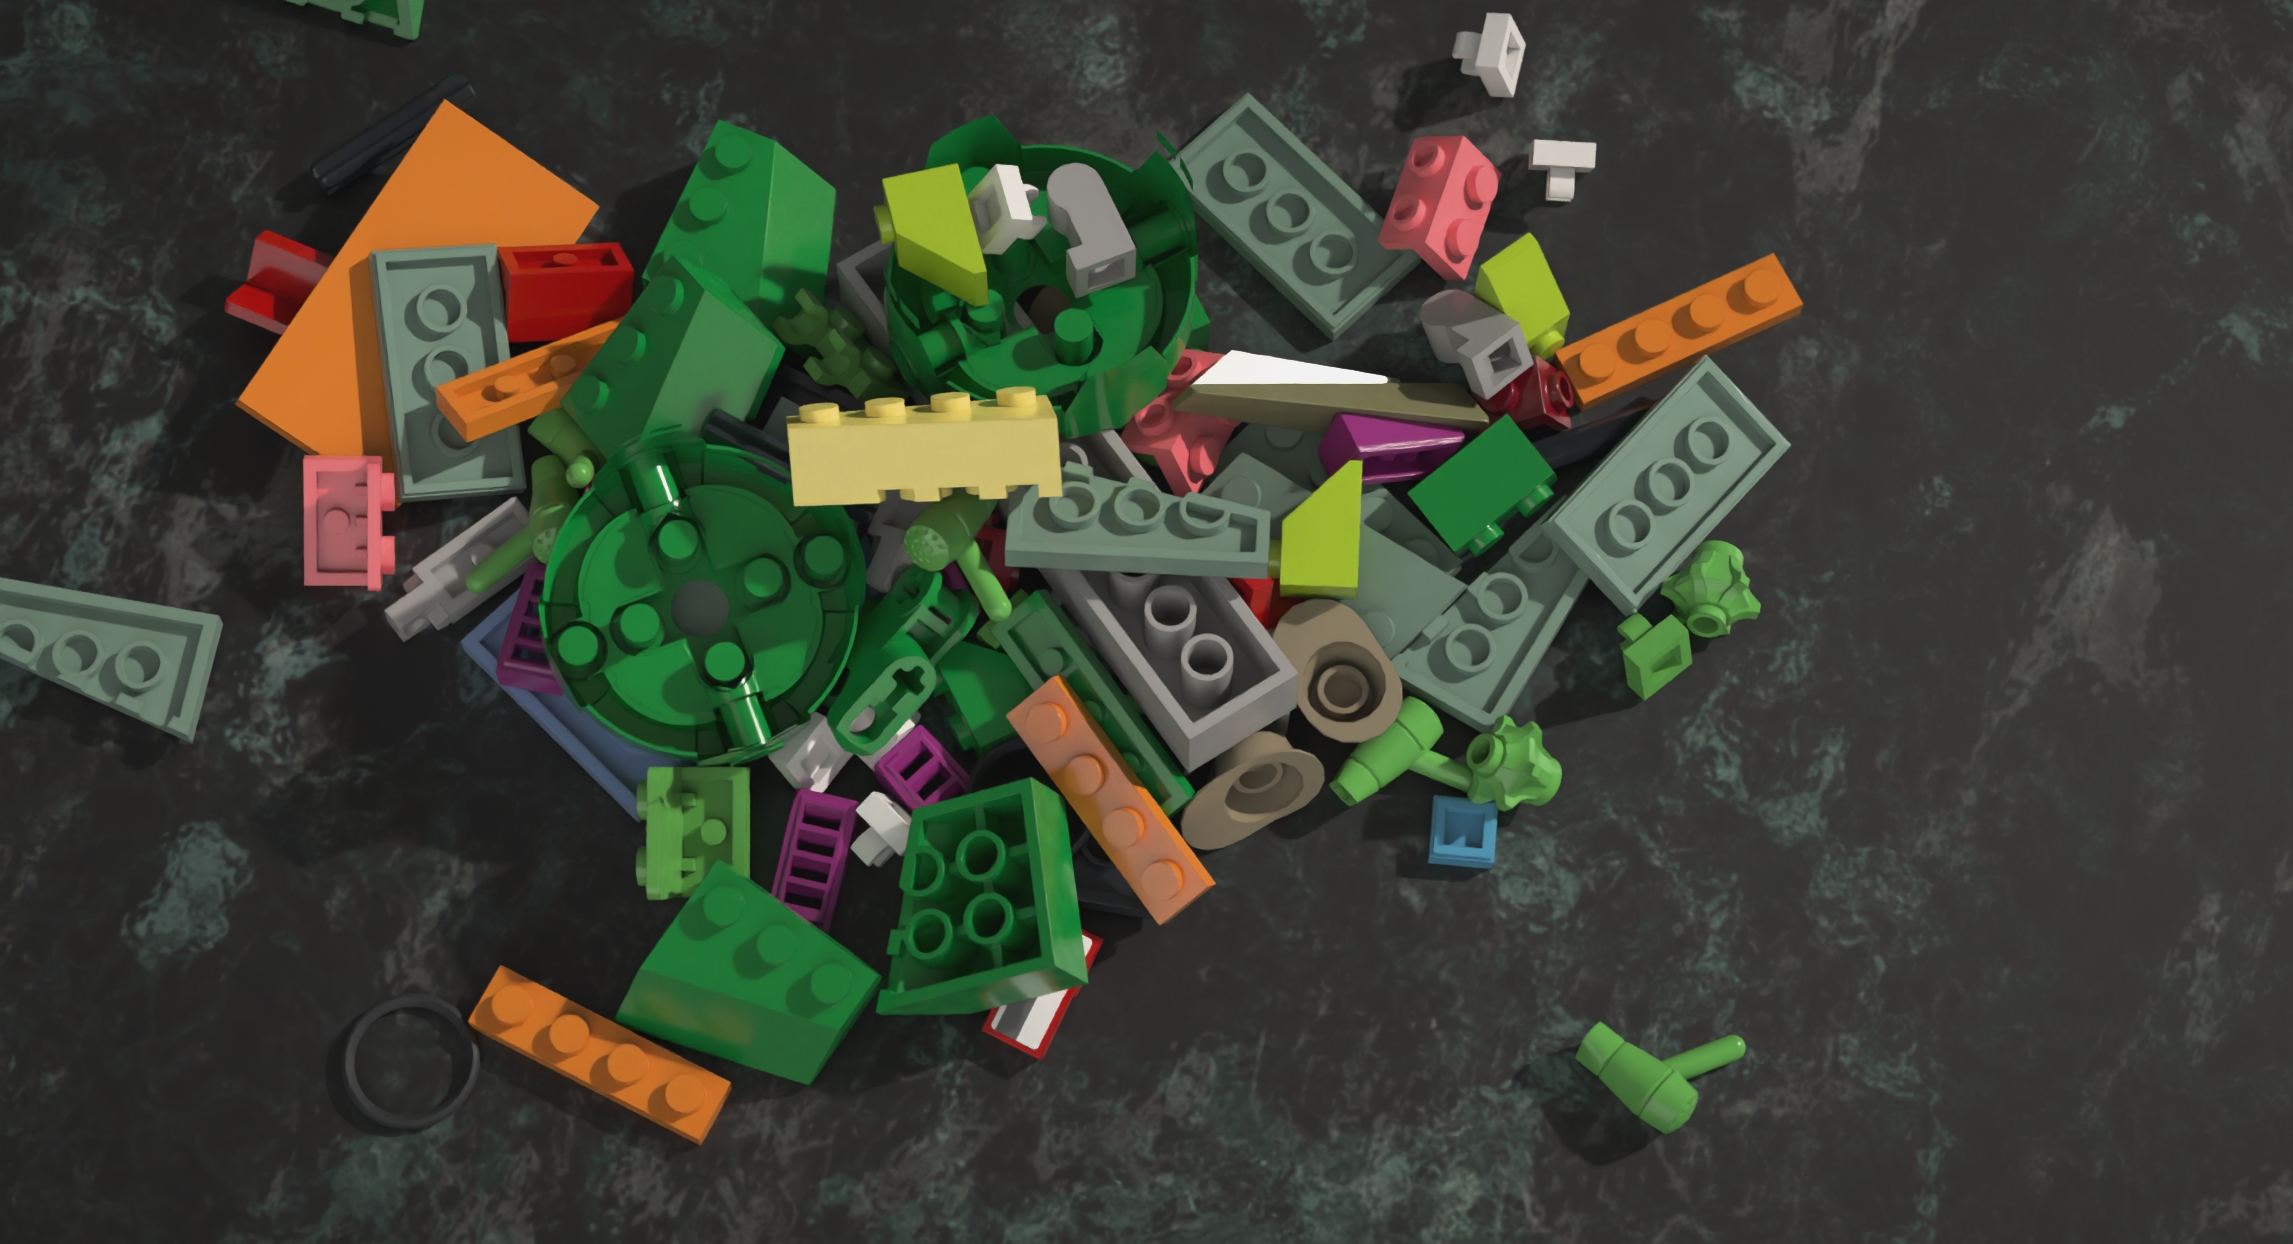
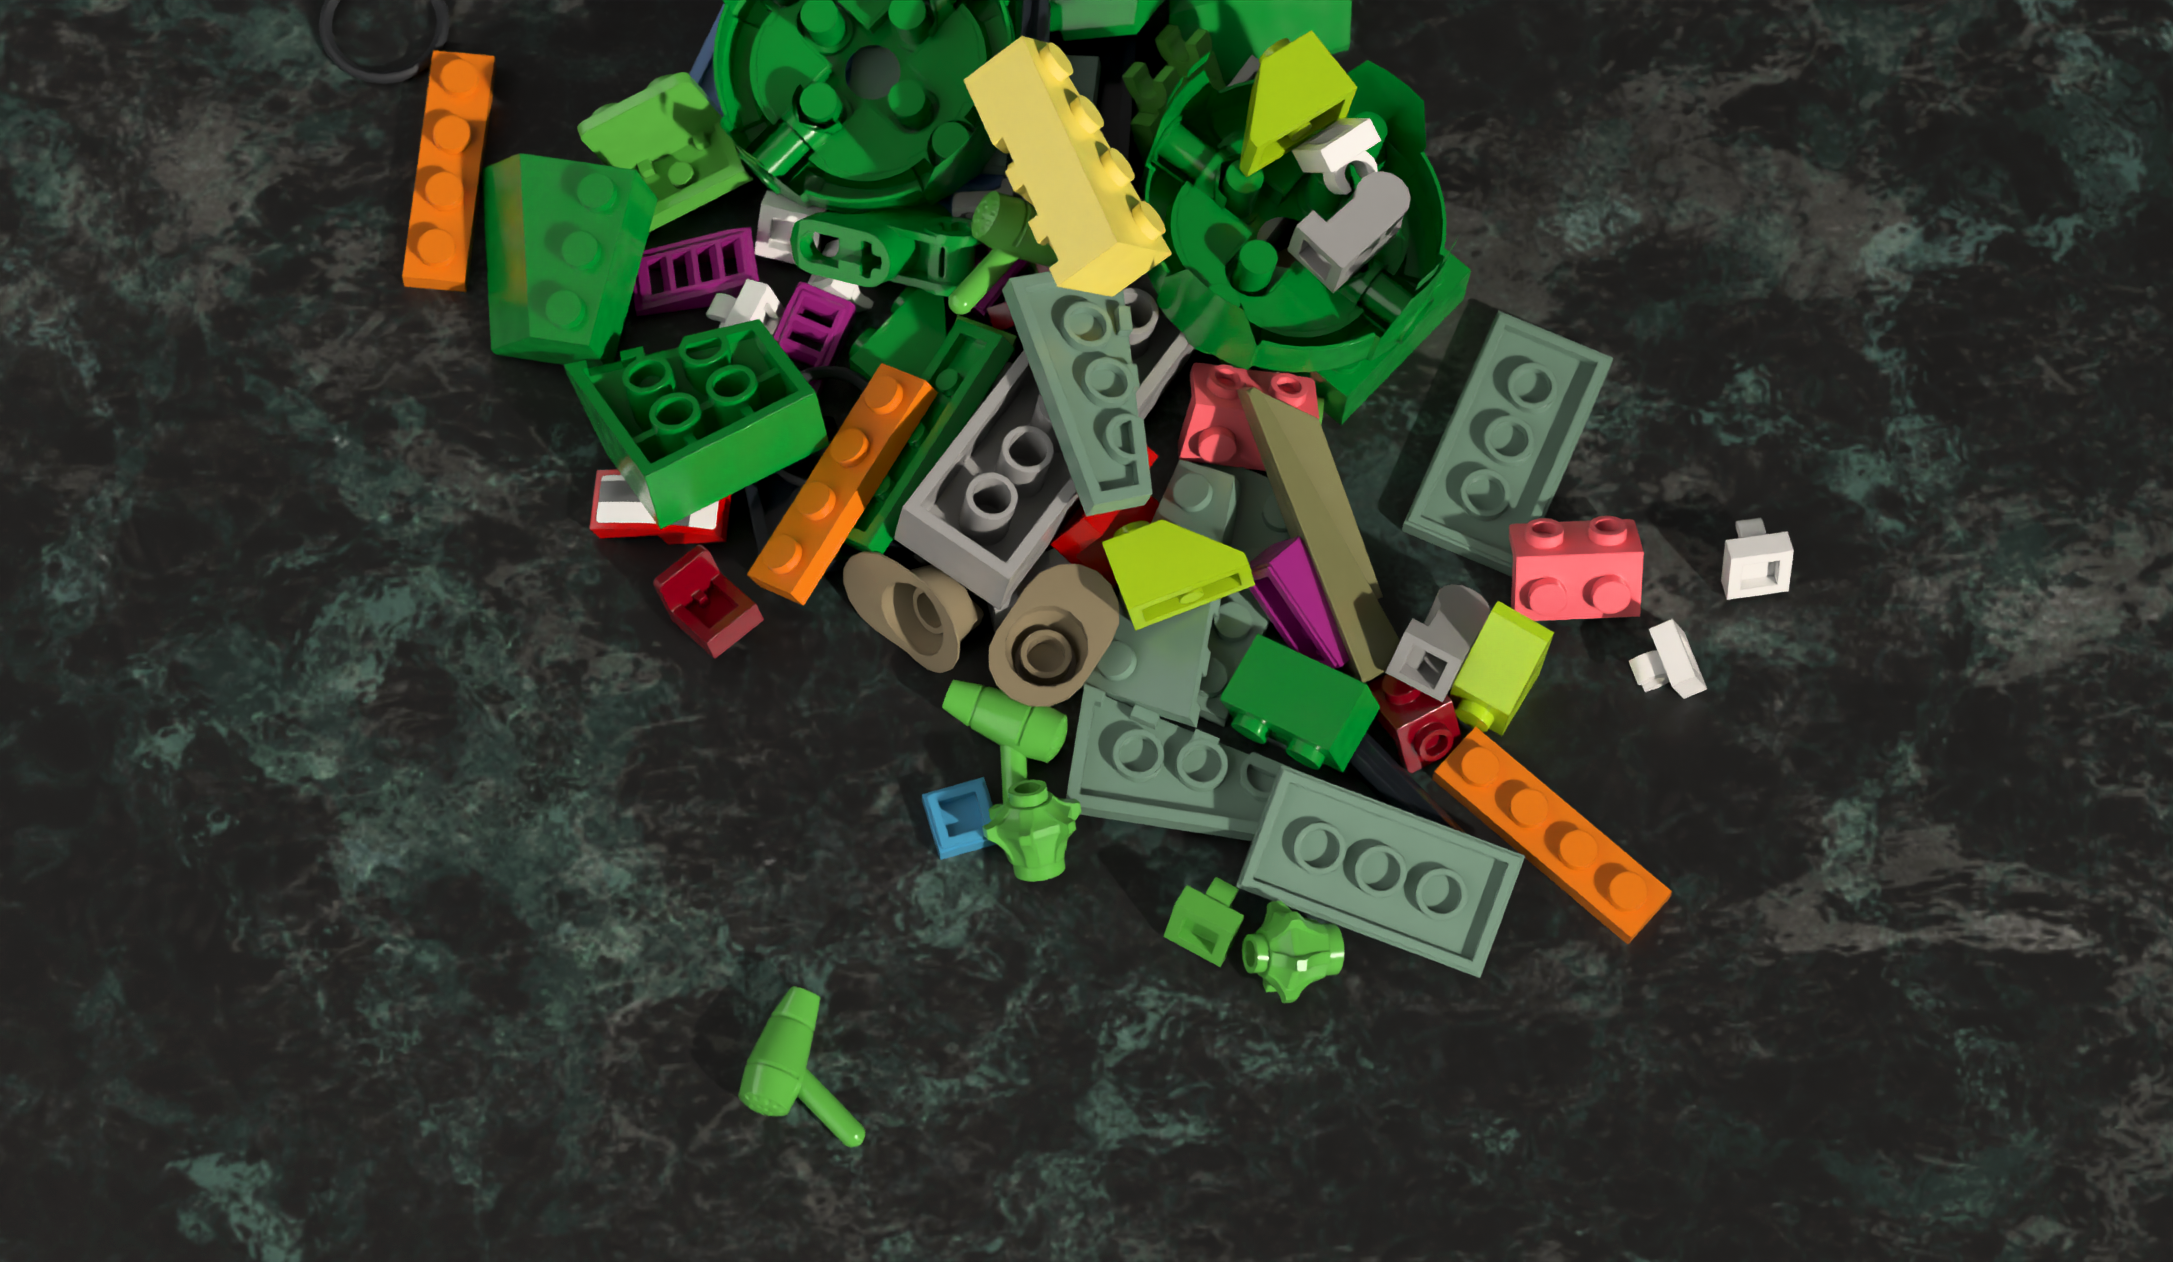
camera: 65 degrees right, 0 degrees up
(1165, 977) = (706, 602): none -> dark red bracket

